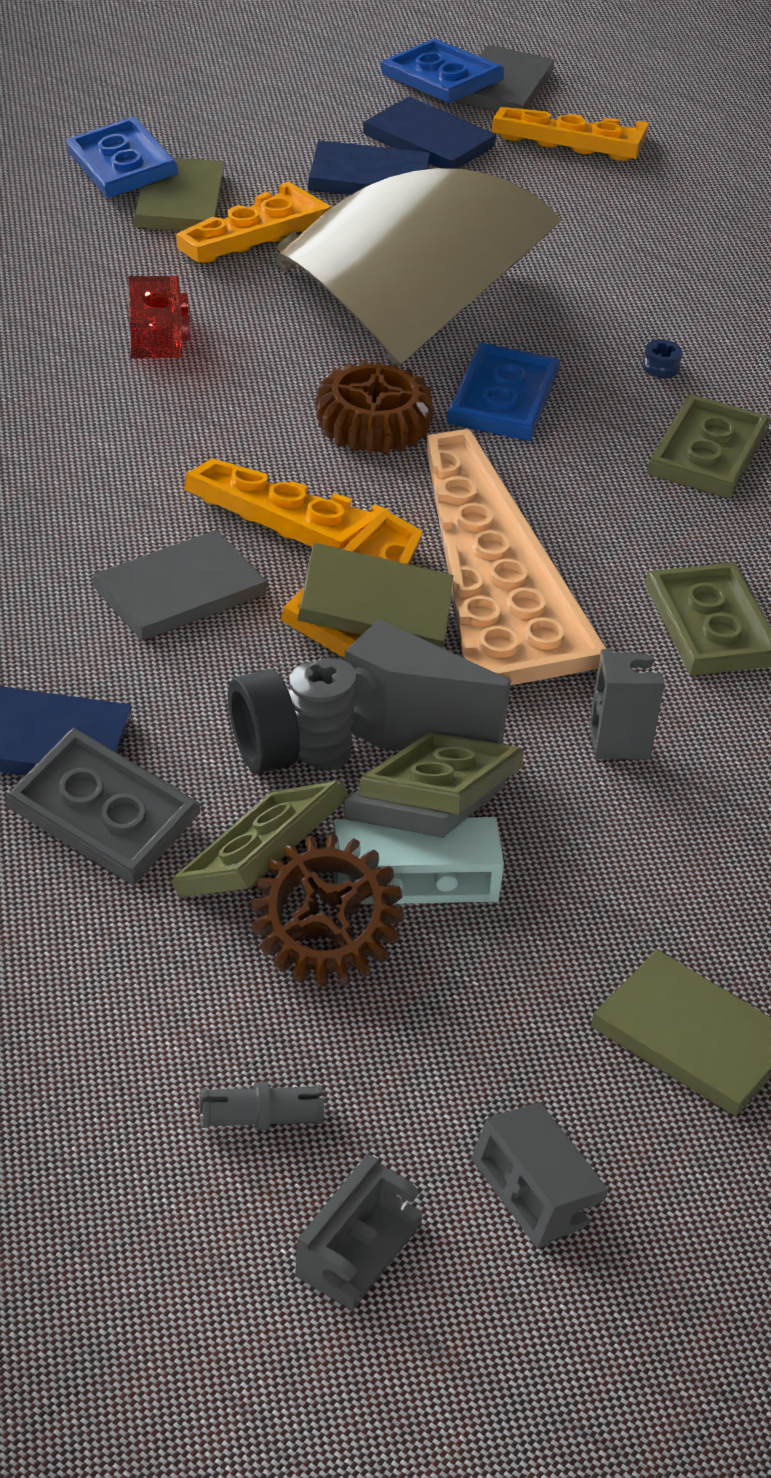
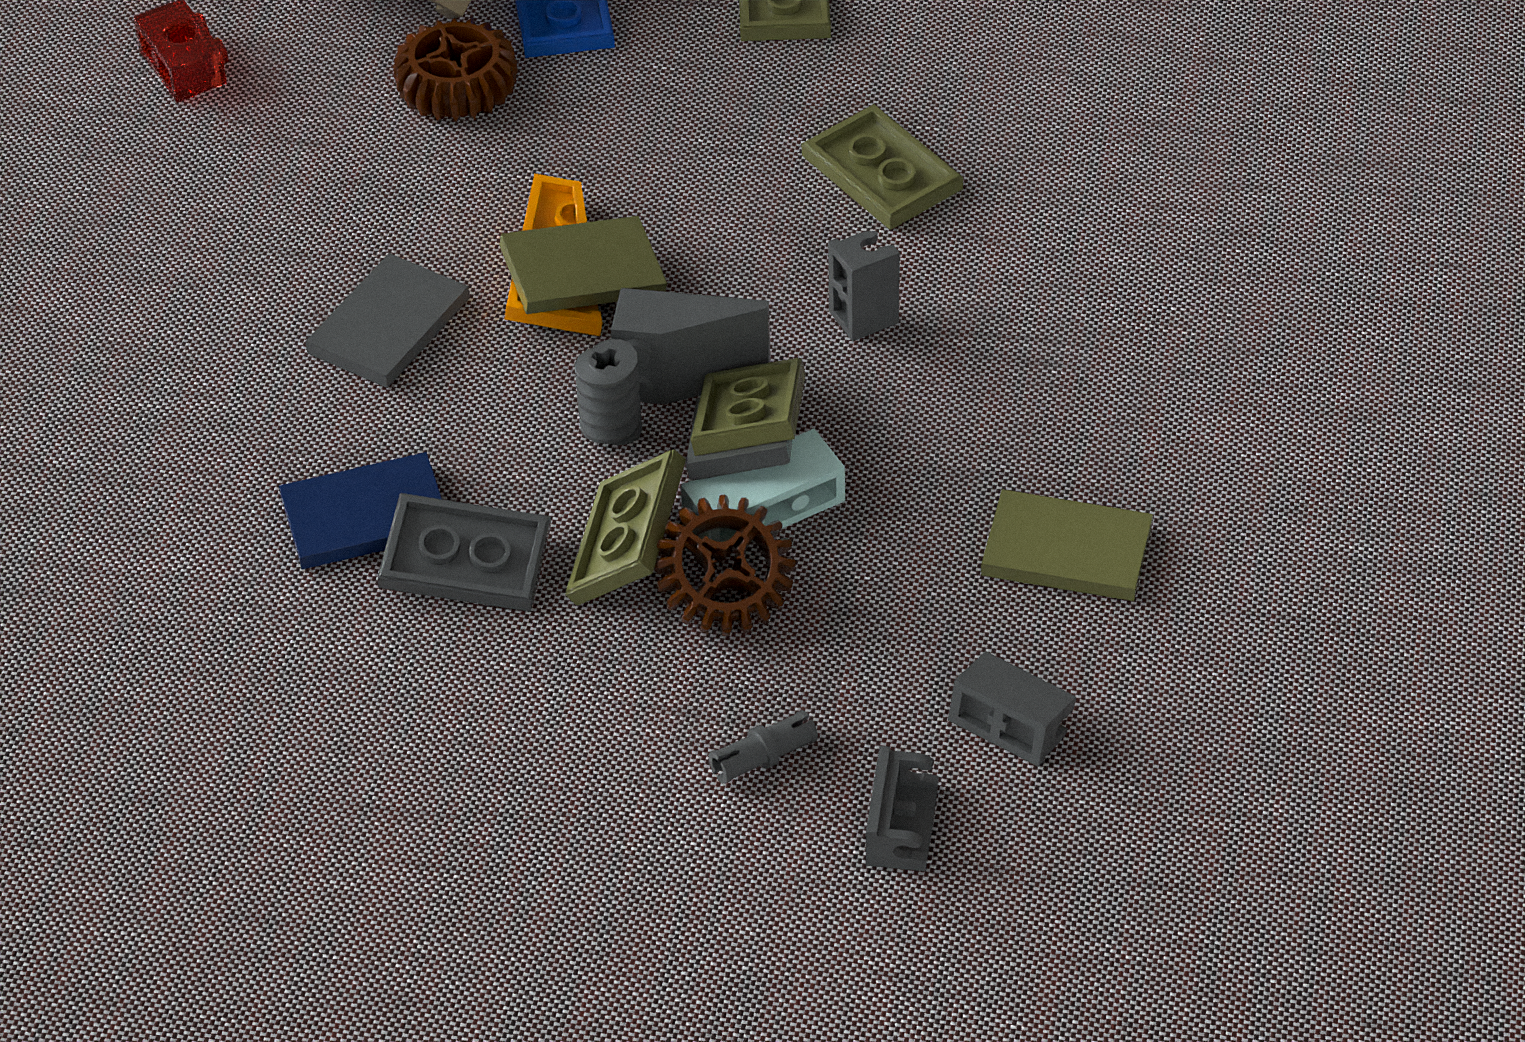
camera: 20 degrees left, 5 degrees up
(263, 721) = (562, 420): black tyre -> none
(279, 505) = (434, 205): light orange wing -> none
(505, 588) = (695, 216): light nougat wing -> none

